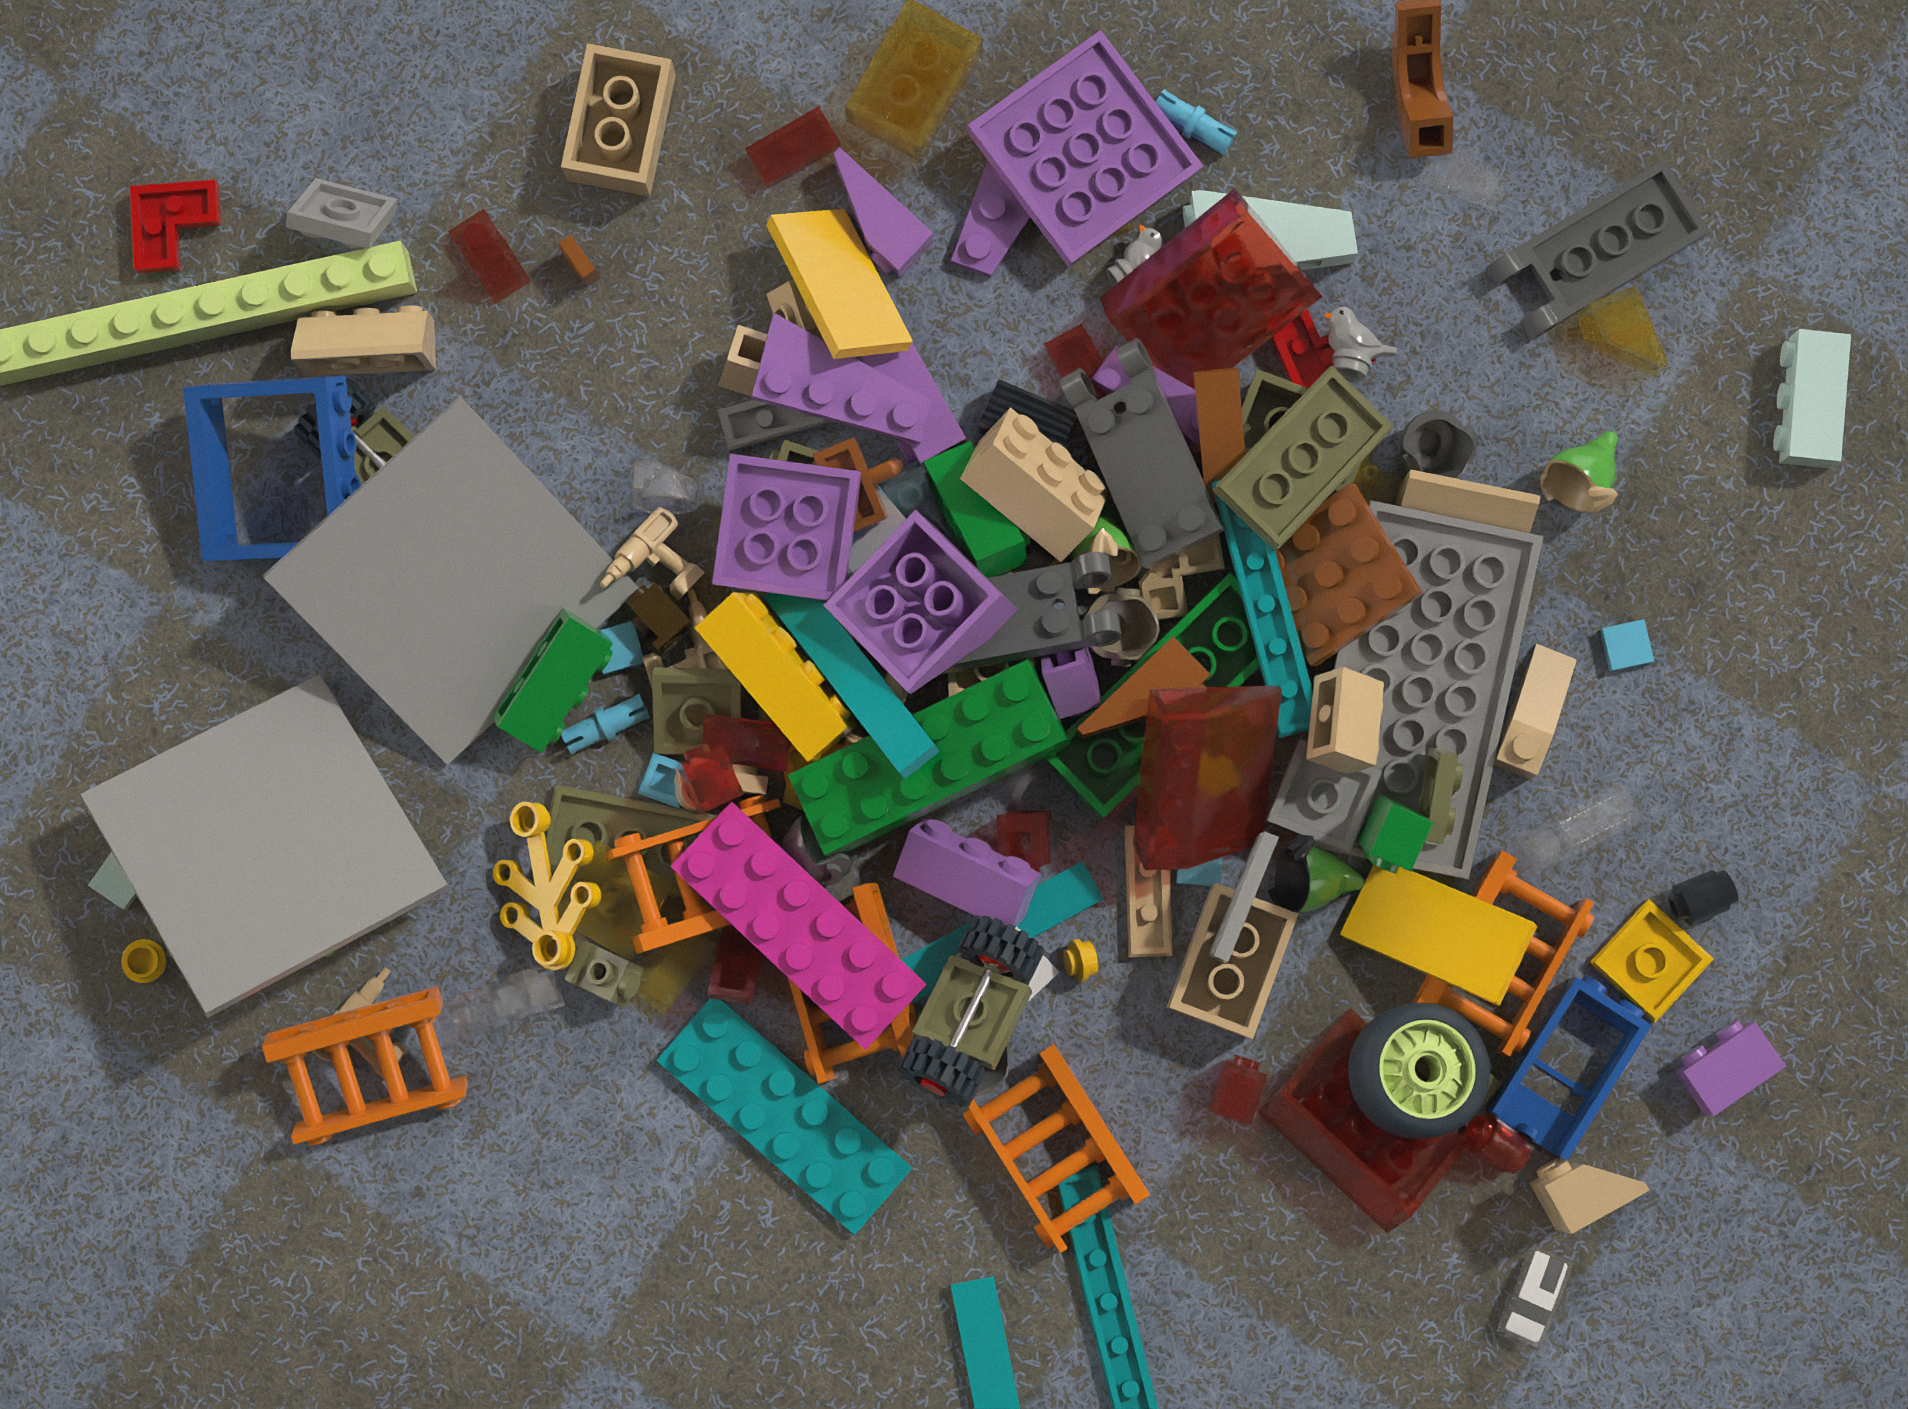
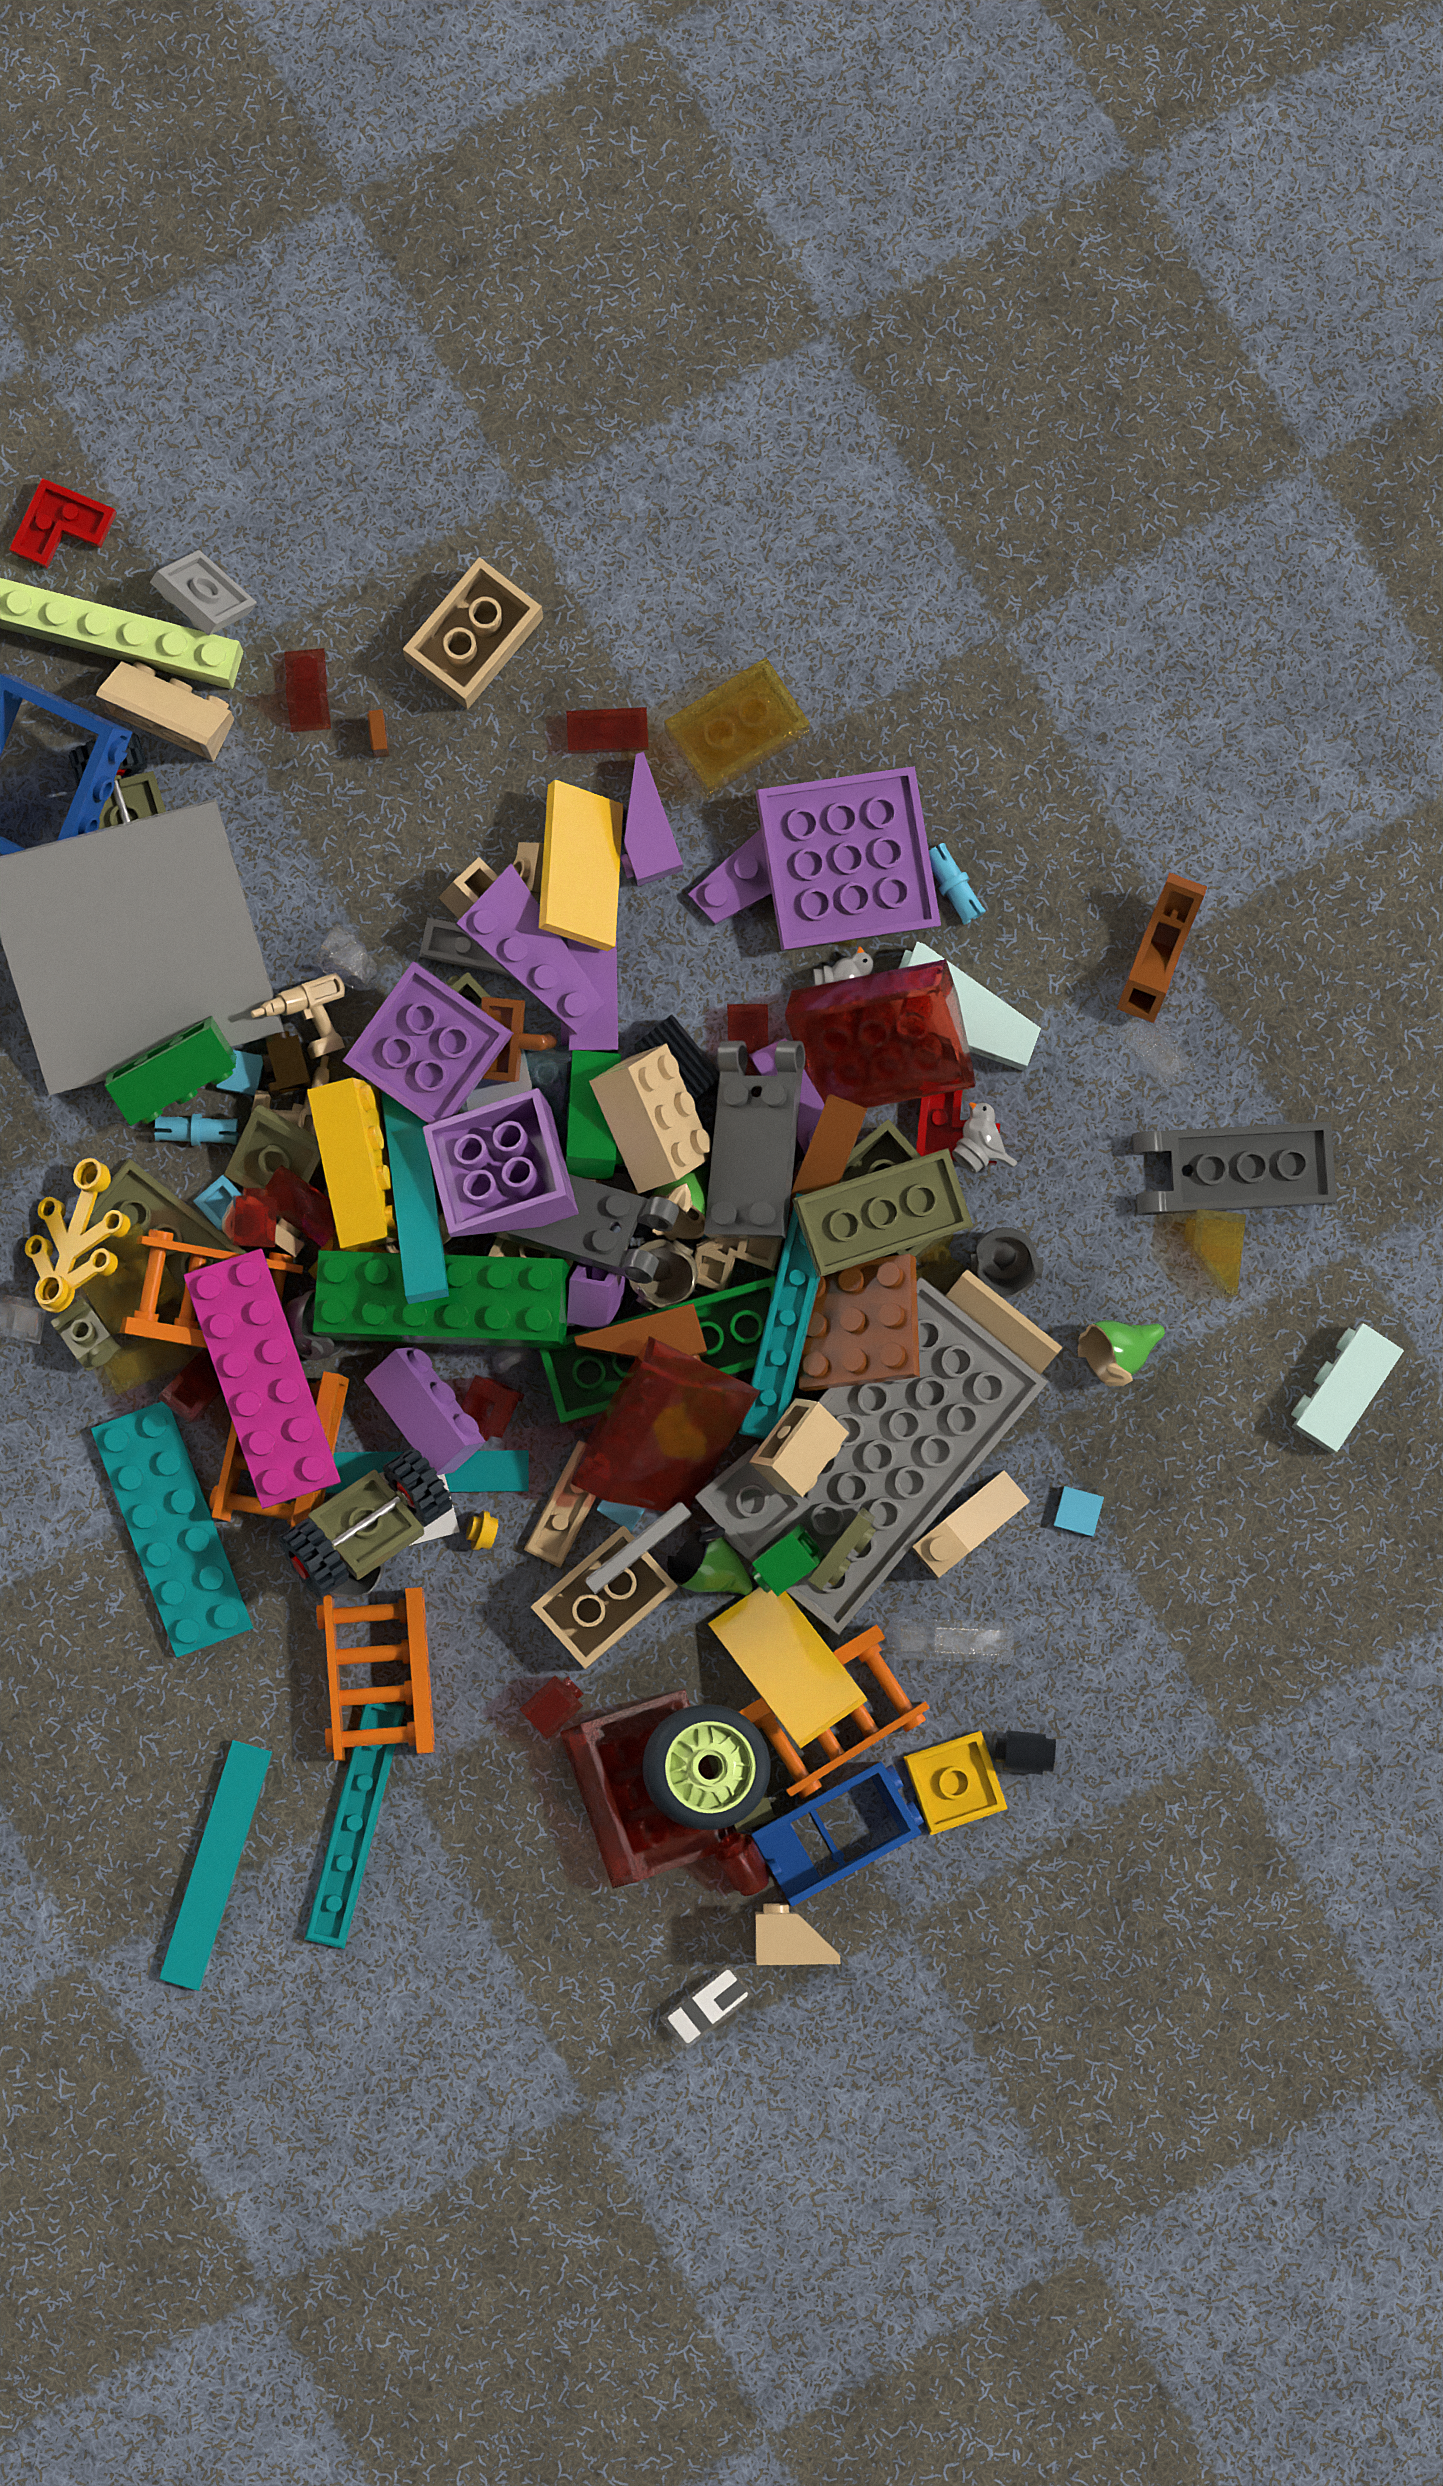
camera: 25 degrees right, 0 degrees up
(1729, 1067) = (970, 1904): medium lavender brick -> none

